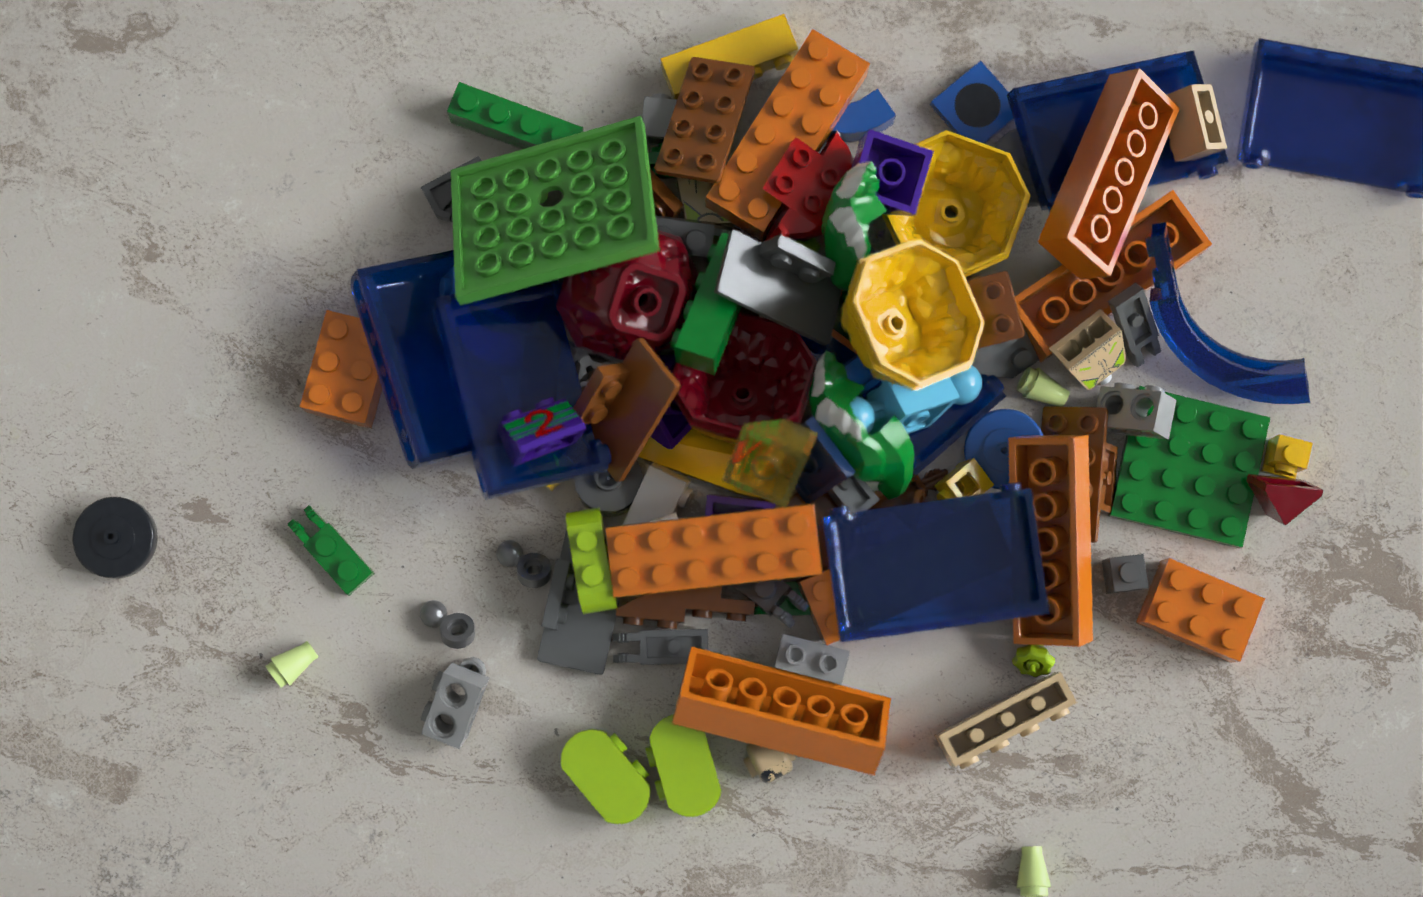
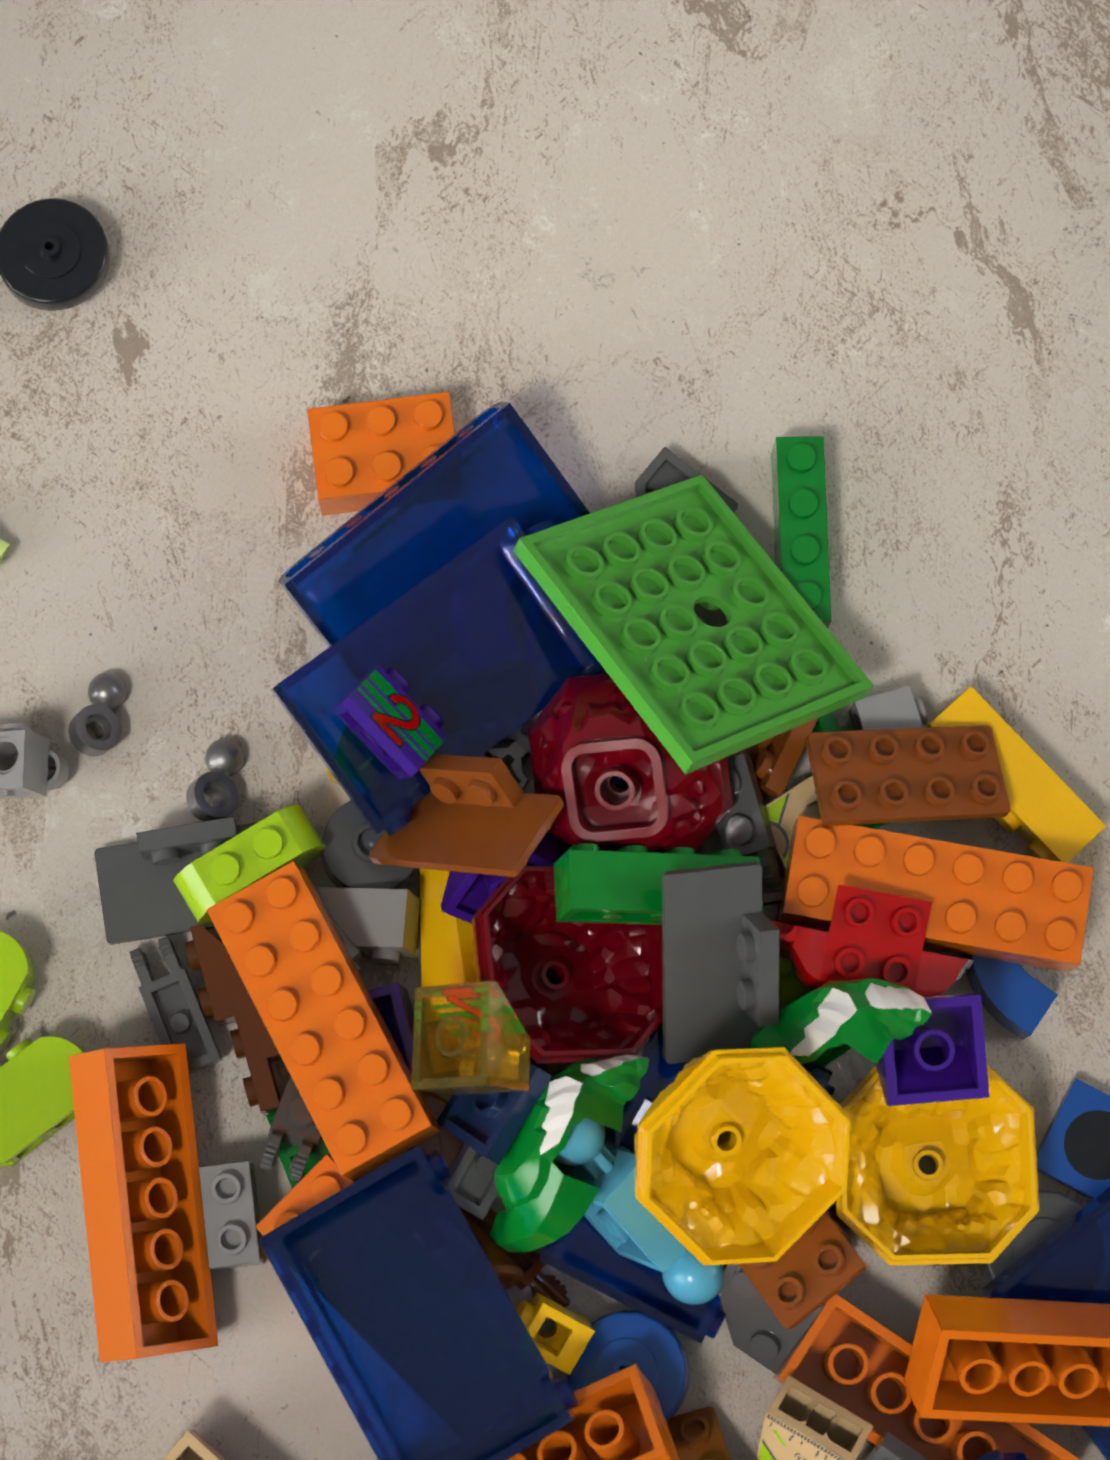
camera: 65 degrees right, 5 degrees down
(333, 553) = (138, 531): green hinge -> none
(767, 763) = (65, 1212): tan head -> none
(1041, 387) = (736, 1393): yellowish green cone -> none

